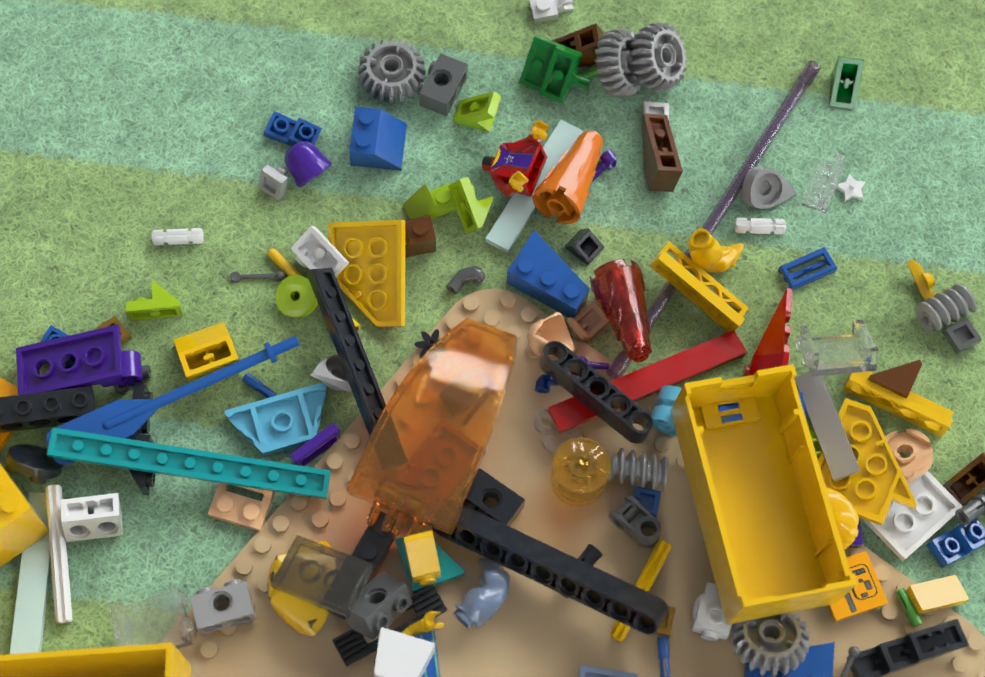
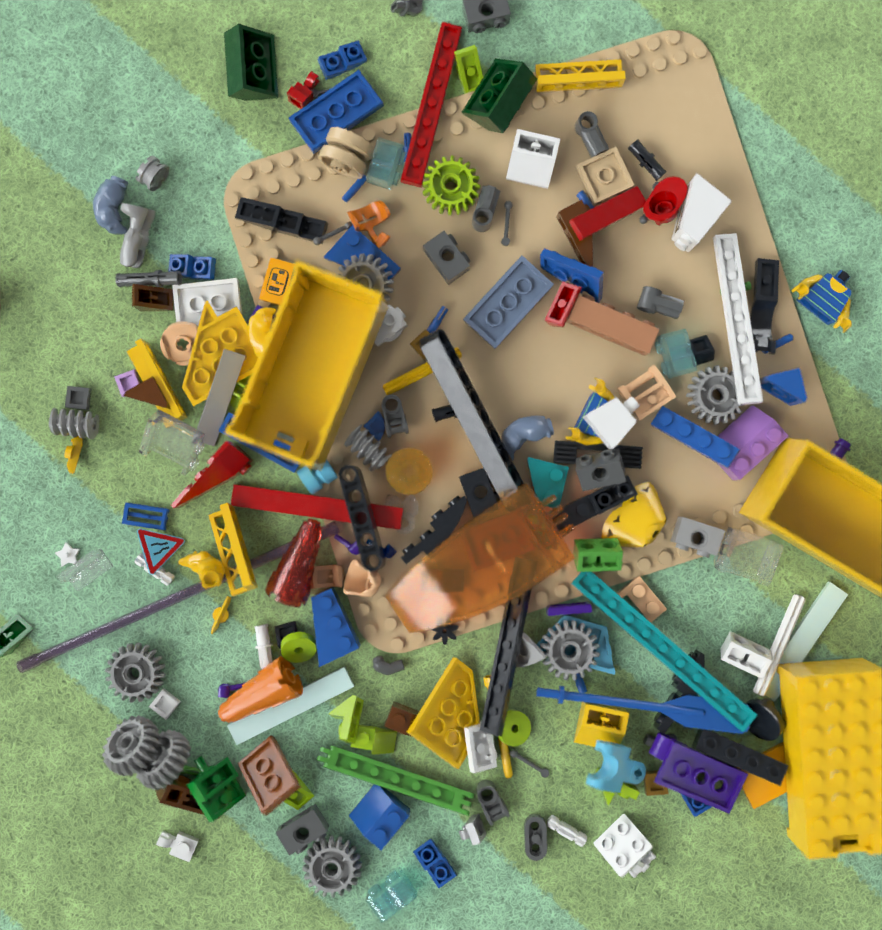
camera: 150 degrees left, 20 degrees up
(106, 254) = (625, 848): none -> white plate
(165, 317) = (616, 768): none -> medium azure piece
(208, 212) = (535, 836): none -> dark grey plate
(268, 215) = (492, 805): none -> dark grey piece
(289, 418) = (579, 659): none -> light grey gear
(305, 162) = (442, 829): dark purple hair -> none
(316, 79) = (391, 895): none -> clear light blue brick
(322, 514) = (597, 555): none -> bright green brick
(322, 576) = (626, 509): clear smoke tile -> none
(382, 180) = (396, 779): none -> bright green hinge
(422, 558) = (554, 478): yellow slope -> none
(506, 441) = (444, 525): none -> black slope
(509, 105) = (268, 775): none -> tile
(518, 163) = (293, 727): torso -> none
(568, 238) = (298, 647): none -> lime piece
(602, 222) = (263, 645): none -> white axle
(660, 153) = (185, 670): reddish brown slope -> none
(664, 223) = (220, 614): none -> yellow piece
(709, 109) = (122, 675): none -> light grey gear
(765, 188) = (130, 593): light grey piece -> none
(772, 245) = (157, 548): none -> piece
(909, 608) = (259, 244): bright green pin -> none
(927, 383) = (127, 381): none -> lavender tile
(937, 594) = (234, 242): yellow tile -> none

